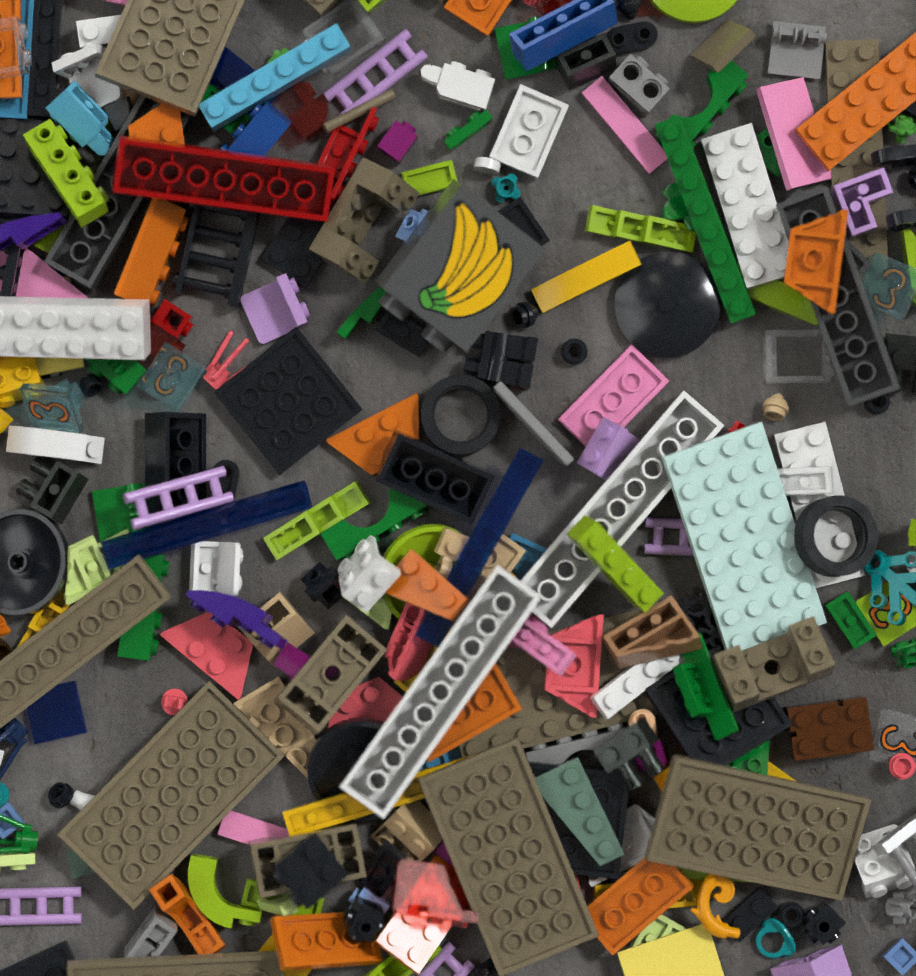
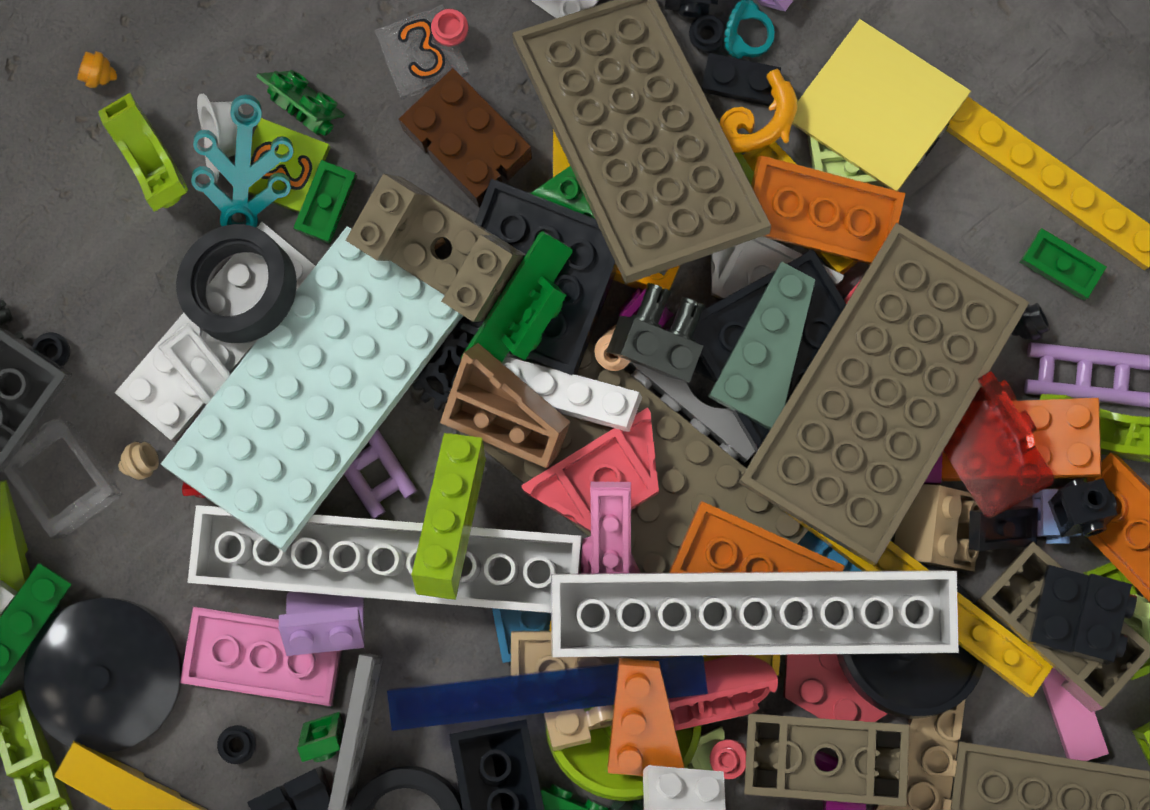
camera: 115 degrees left, 5 degrees down
(369, 621) = (729, 757): none -> coral plate
(543, 403) = (321, 738): none -> green plate

